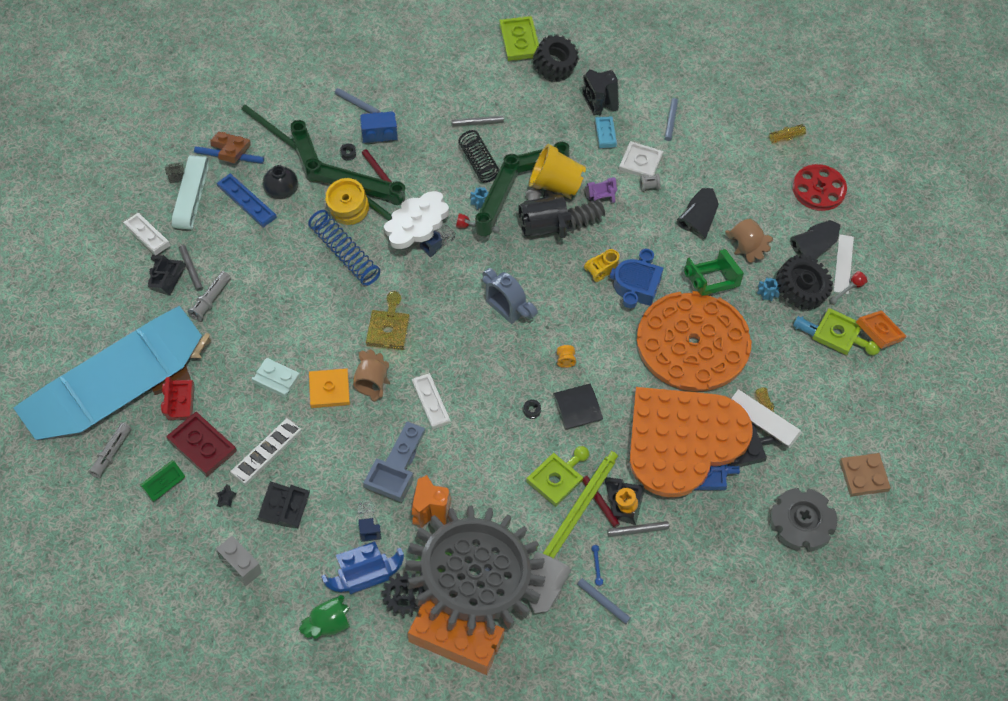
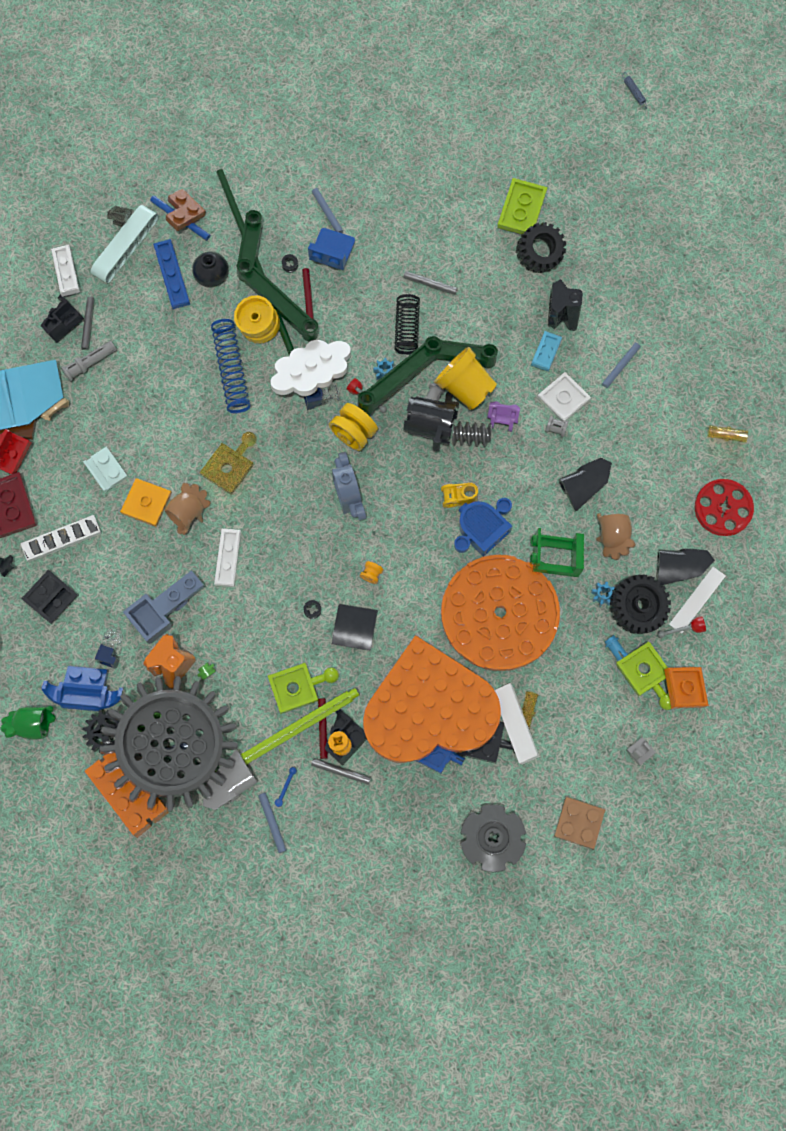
camera: 30 degrees right, 15 degrees up
(467, 499) = (206, 670): none -> bright green plate
(482, 247) = (353, 426): none -> yellow wheel
(877, 395) = (641, 751): none -> light grey tile

